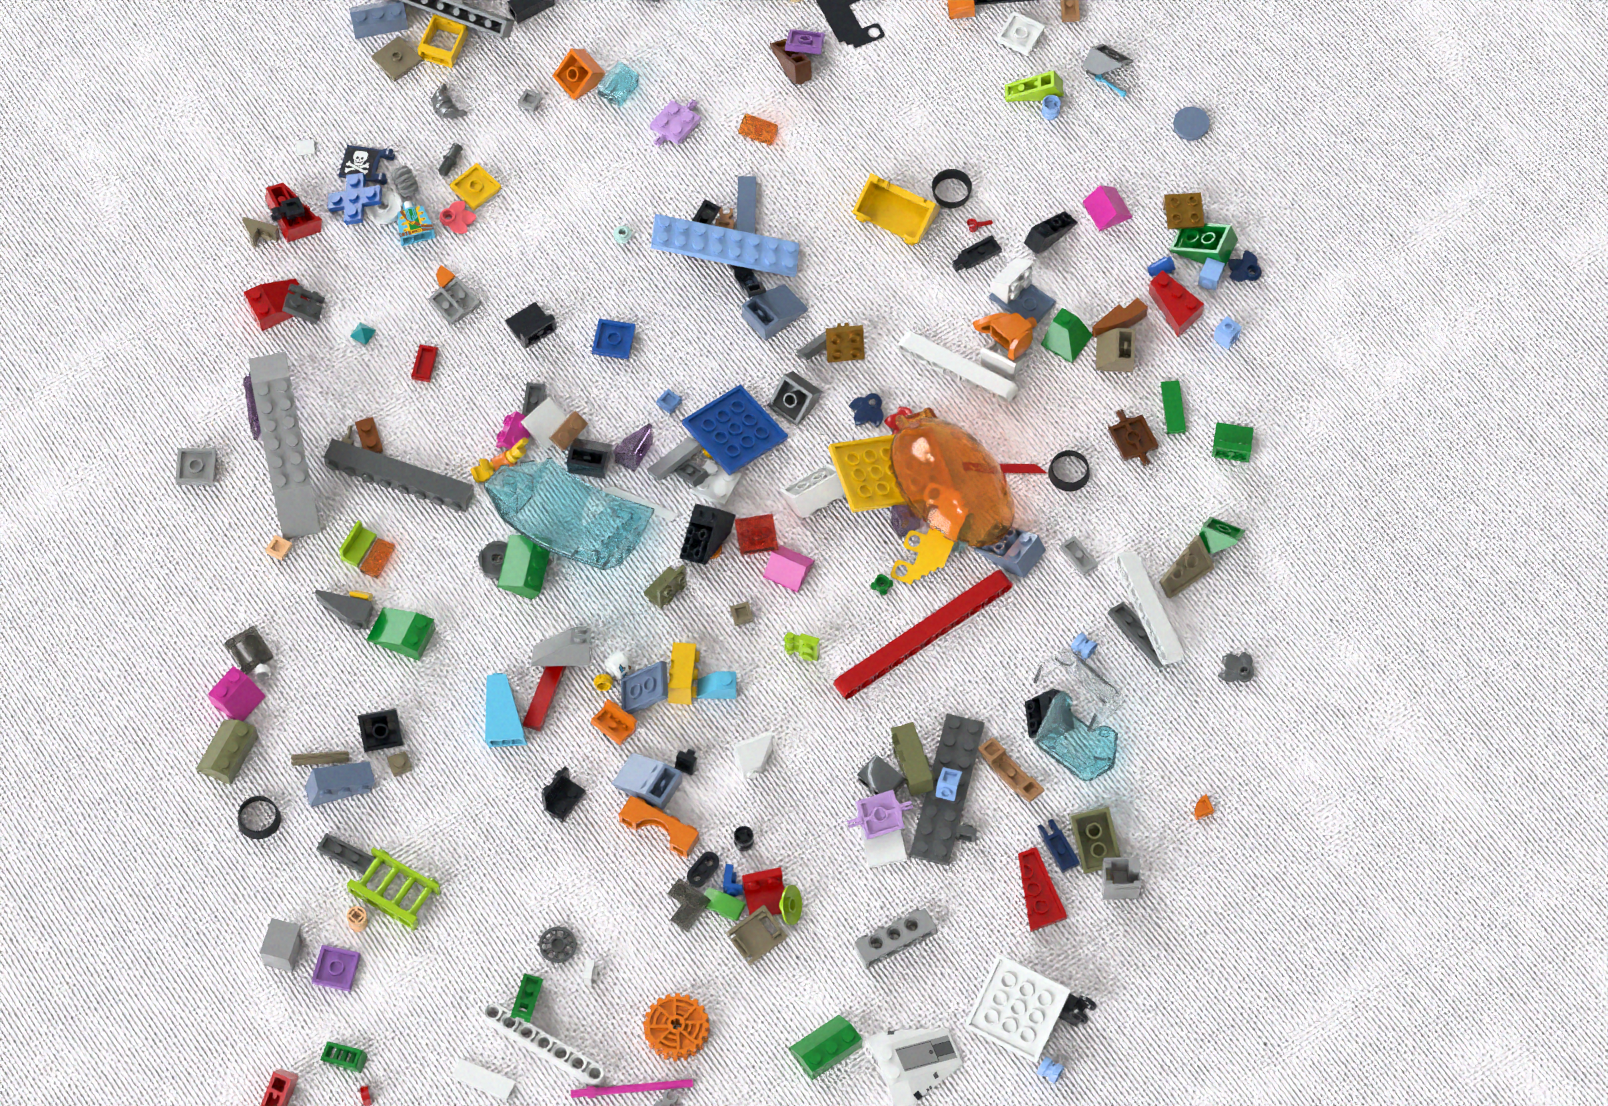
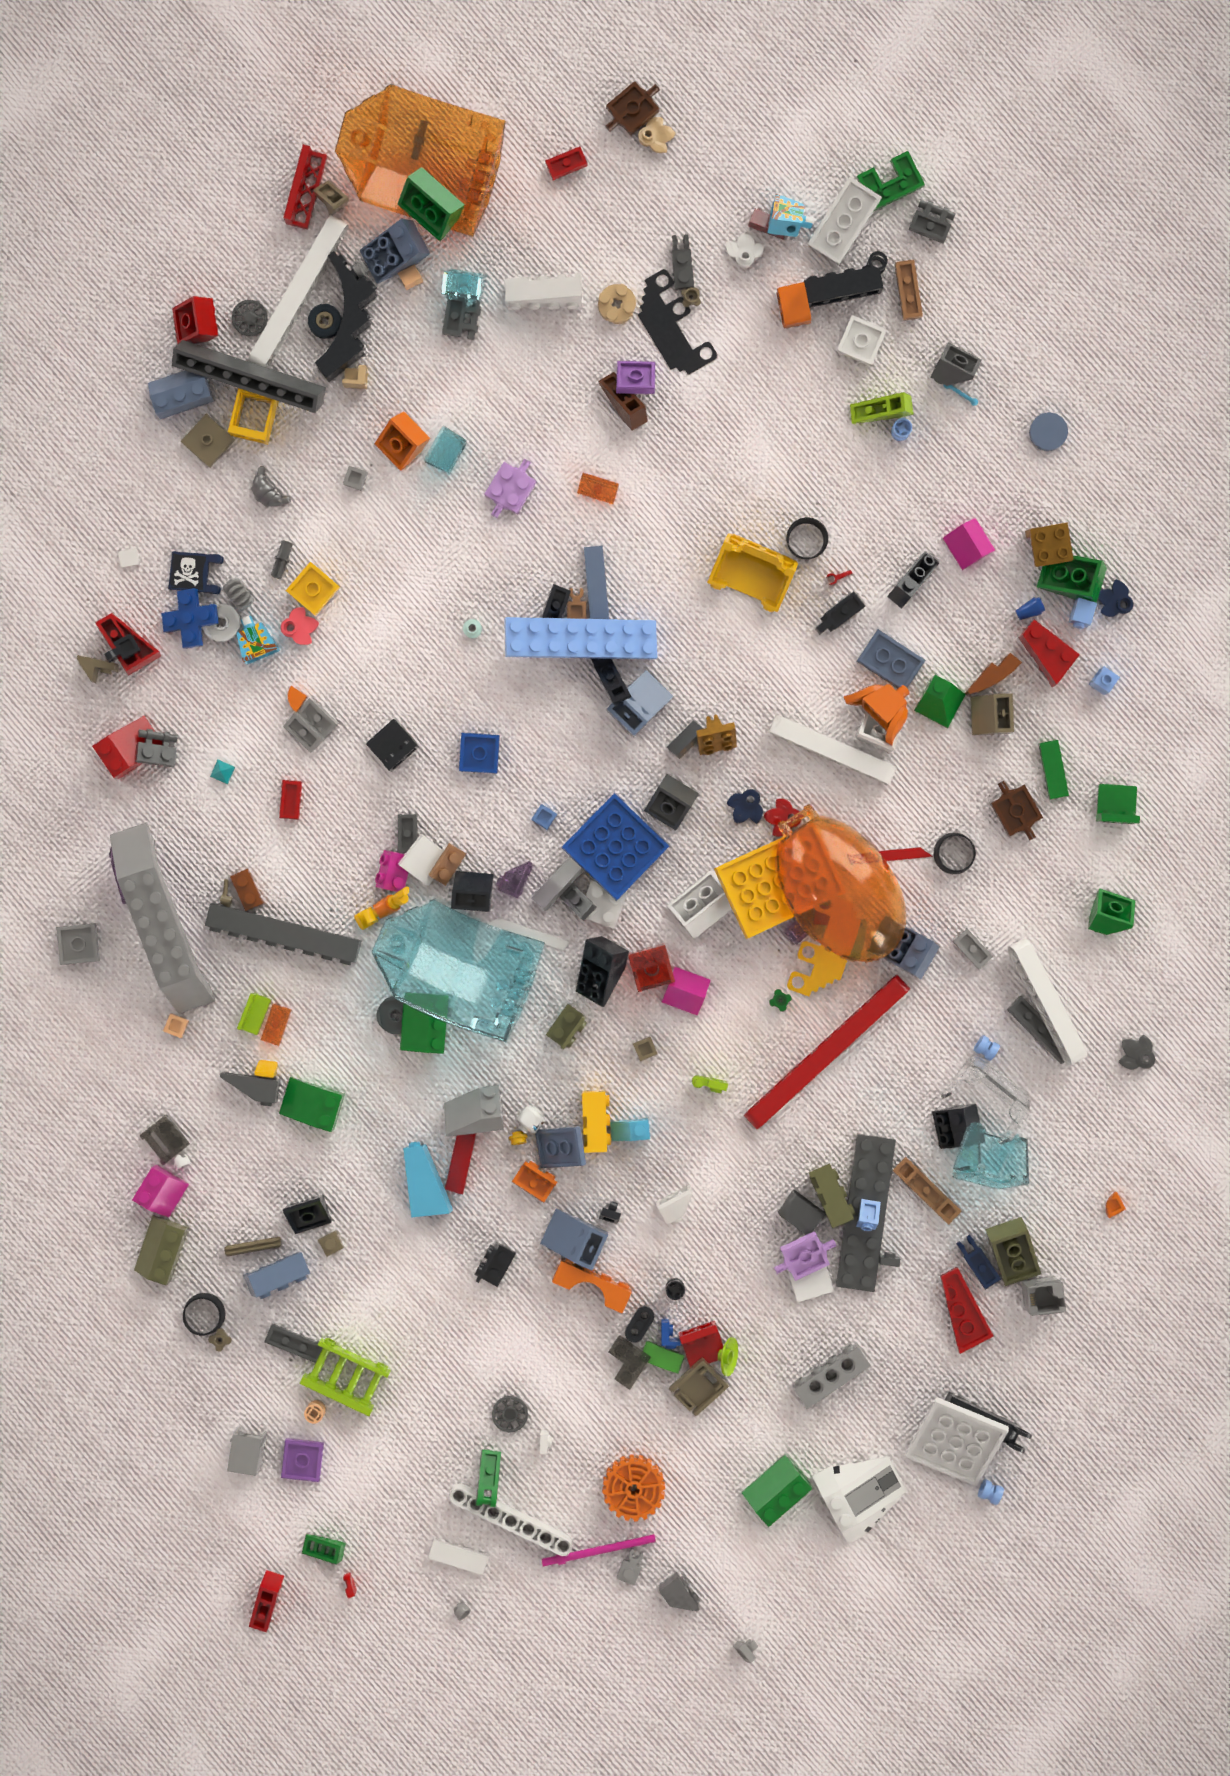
camera: 10 degrees left, 25 degrees up
(271, 847) = (220, 1334): none -> dark tan plate
(544, 22) = (356, 377): none -> tan panel
(1013, 279) = (878, 648): white slope -> none
(1187, 569) = (1083, 953): dark tan wing -> none

